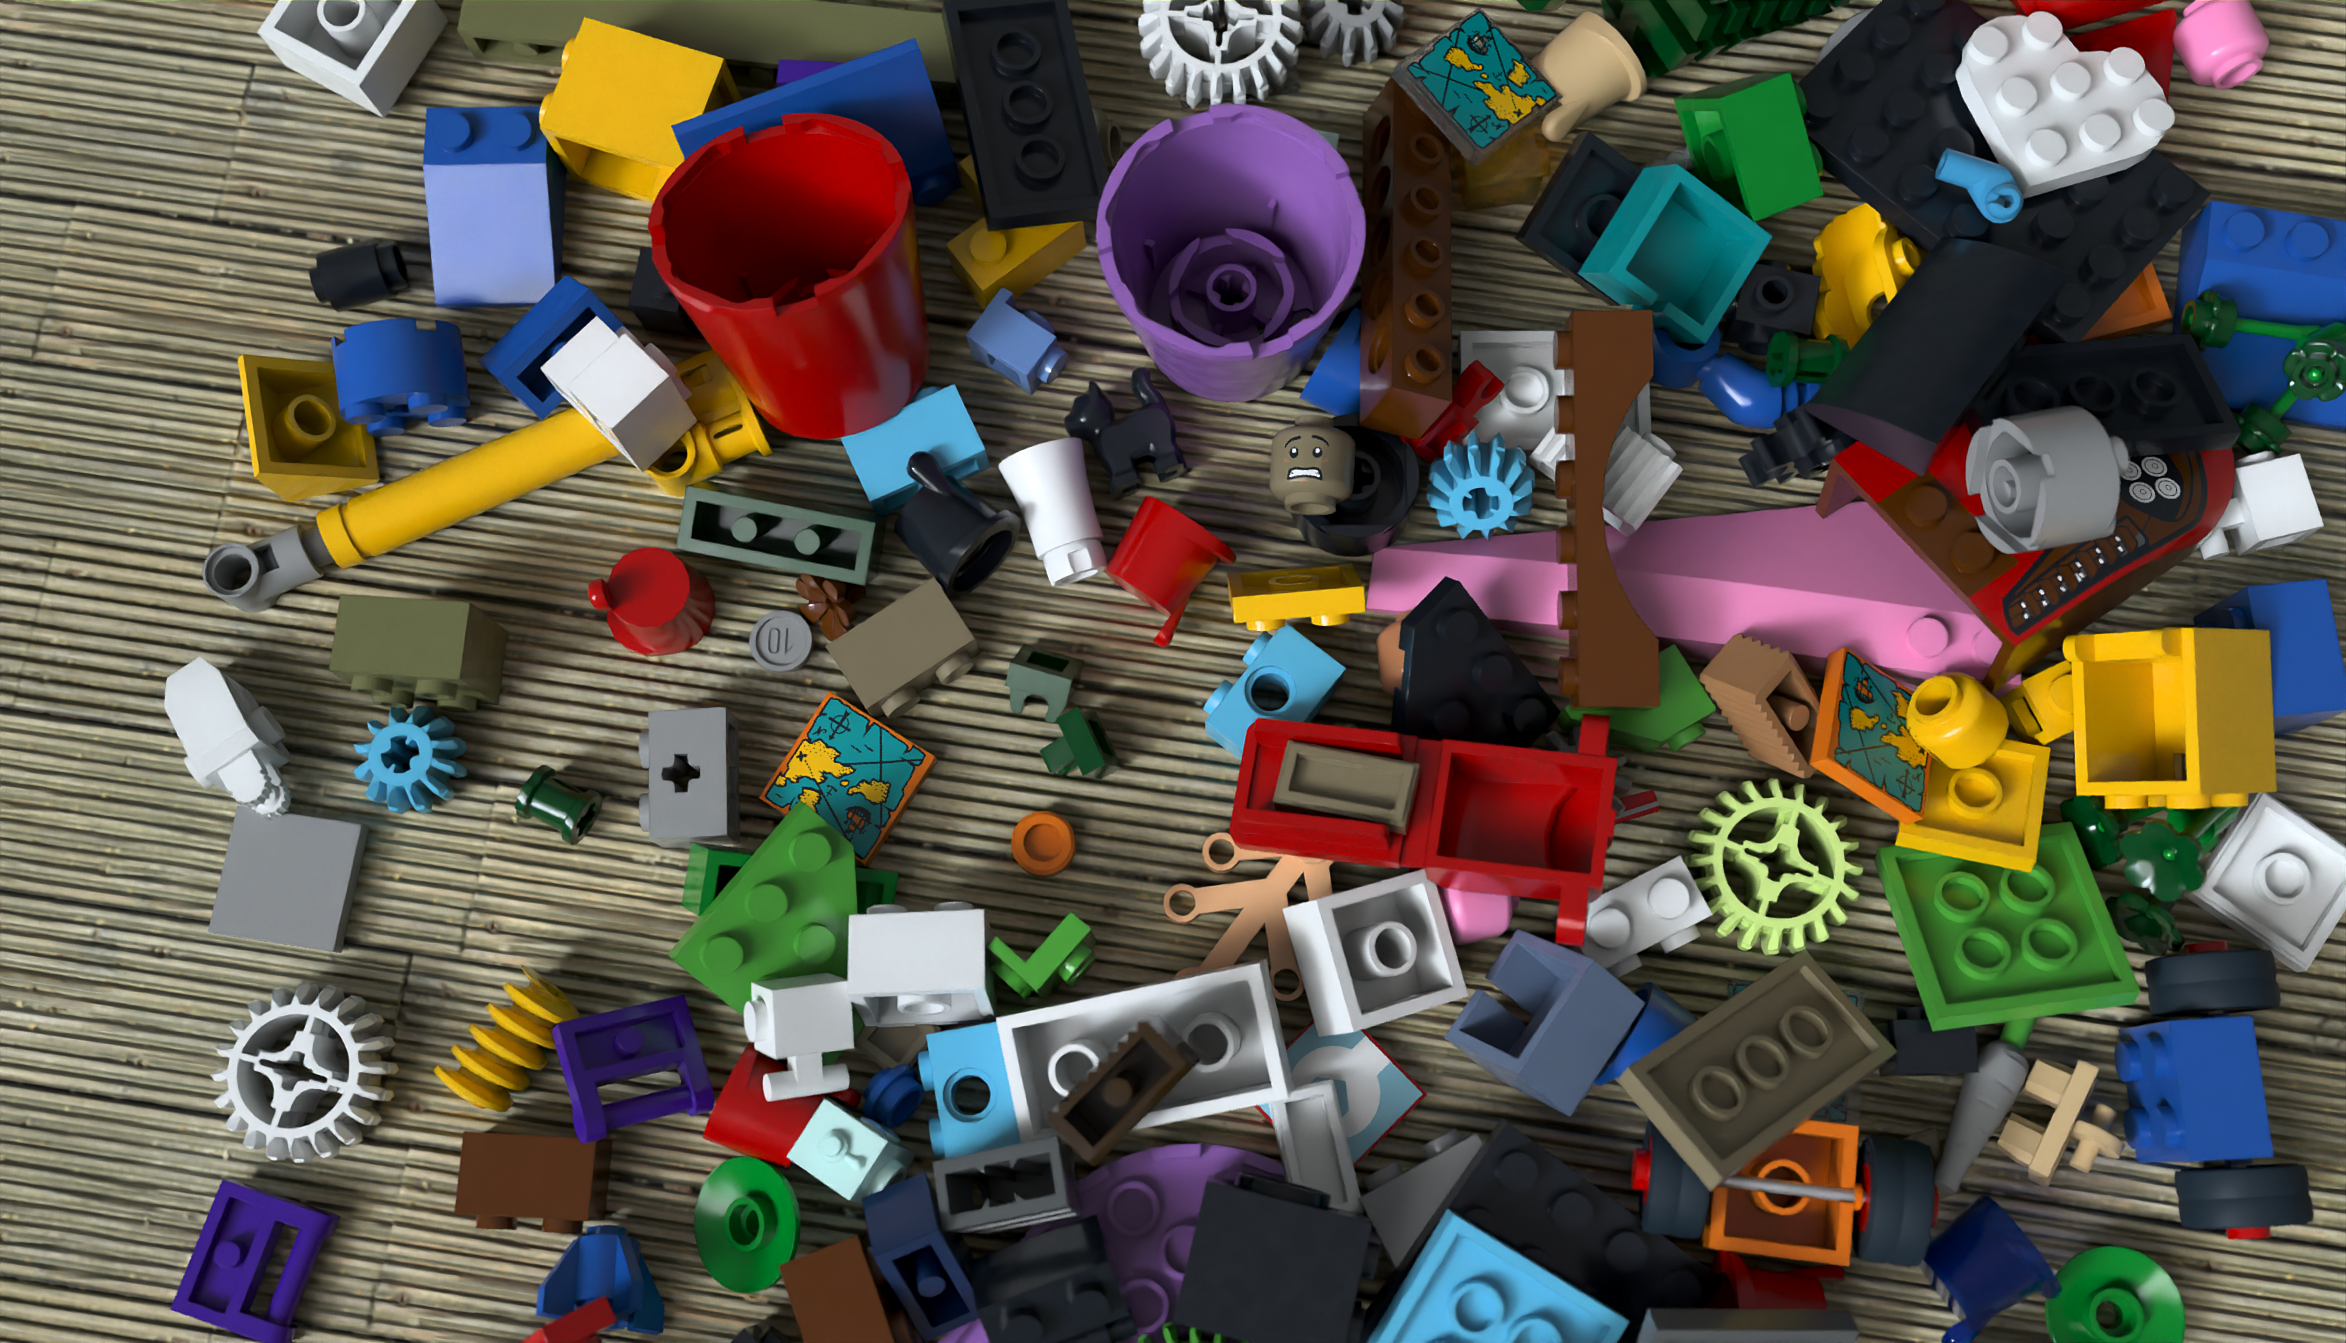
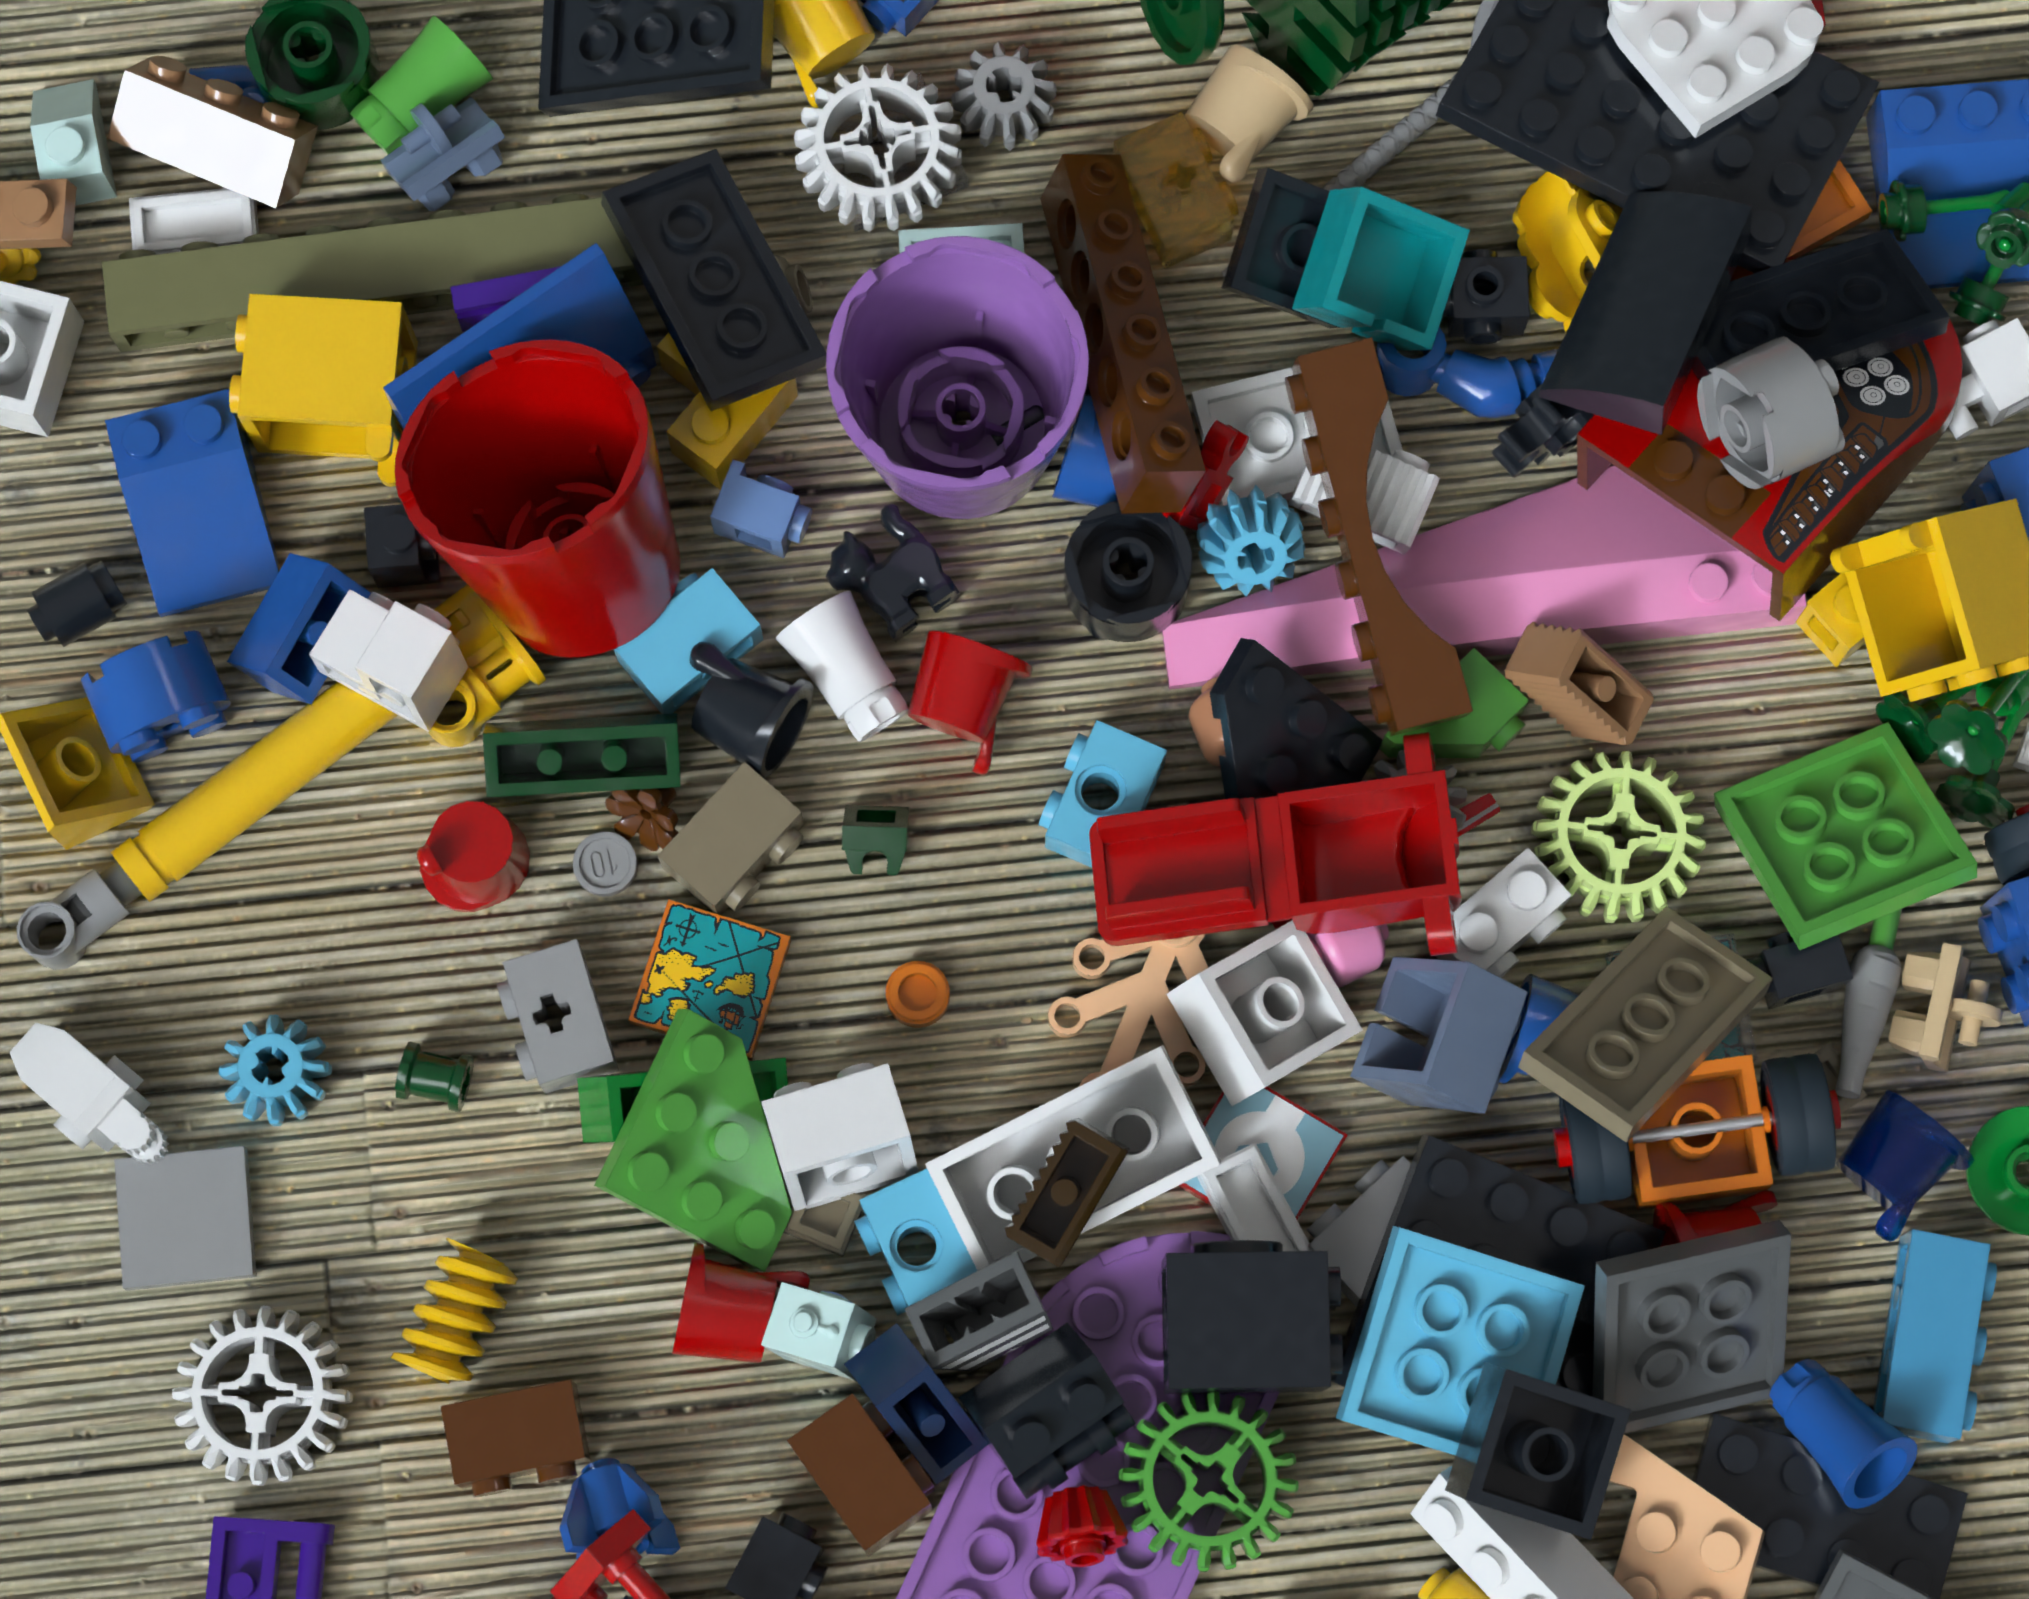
camera: 20 degrees left, 0 degrees up
(419, 651) = (260, 962): olive brick -> none
(629, 1046) = (575, 1286): dark purple plate -> none
(746, 1224) = (714, 1430): green dish -> none
(800, 1022) = (739, 1216): white brick -> none
(892, 1095) = (841, 1267): blue plate -> none
(1060, 958) = (967, 1098): bright green bracket -> none
(1082, 746) = (930, 890): dark green tile -> none
(1312, 466) = (1087, 564): dark tan head -> none
(1317, 592) = (1082, 695): yellow plate -> none
(1346, 785) = (1198, 859): dark tan tile -> none
(1476, 86) = (1147, 149): tile -> none
(1752, 143) = (1428, 144): green slope -> none
(1803, 359) = (1528, 341): dark green bush -> none
(1865, 737) = (1682, 688): tile -> none
(1956, 720) = (1754, 653): yellow head -> none
(1985, 810) = (1789, 722): yellow plate -> none
(1986, 182) = (1658, 130): dark azure arm -> none

